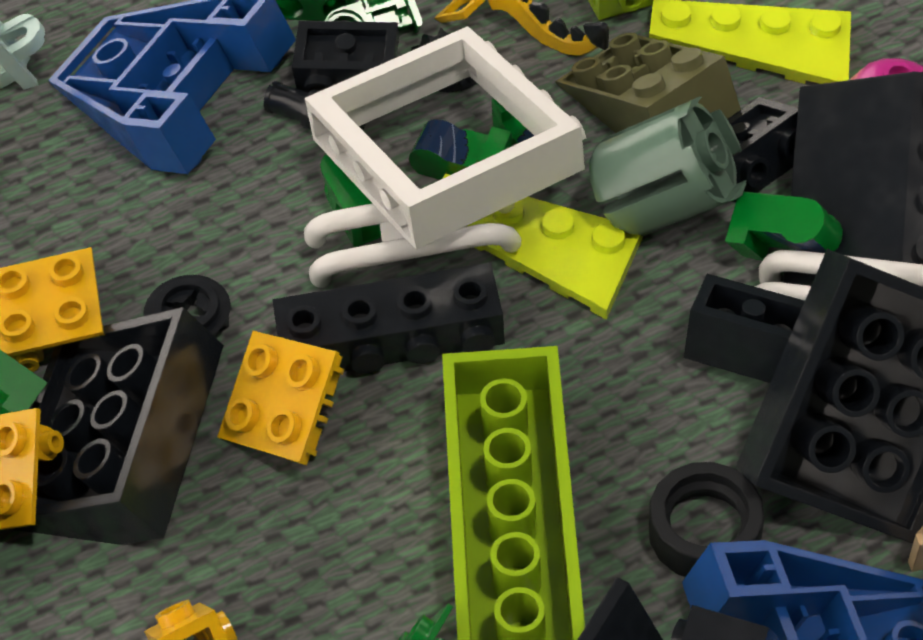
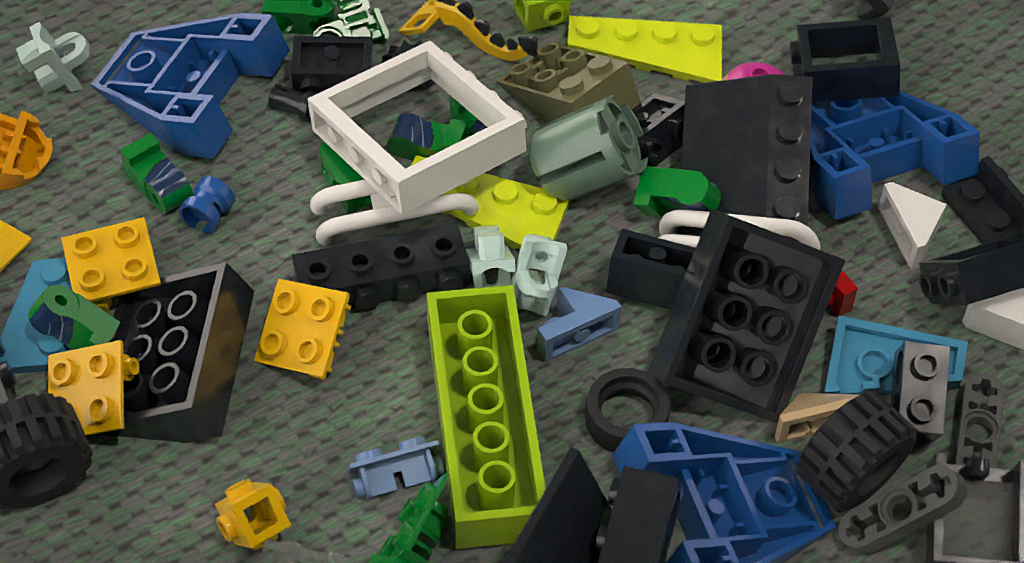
camera: 10 degrees left, 0 degrees up
(113, 192) = (155, 174): none -> green leg
(175, 231) = (209, 201): none -> blue wheel
(183, 291) = (218, 249): black gear -> none
(365, 591) = (411, 460): none -> medium blue hinge
(531, 304) = (488, 254): none -> light aqua hips
(580, 349) = (530, 289): none -> light aqua hips
(651, 395) = (582, 321): none -> medium blue slope

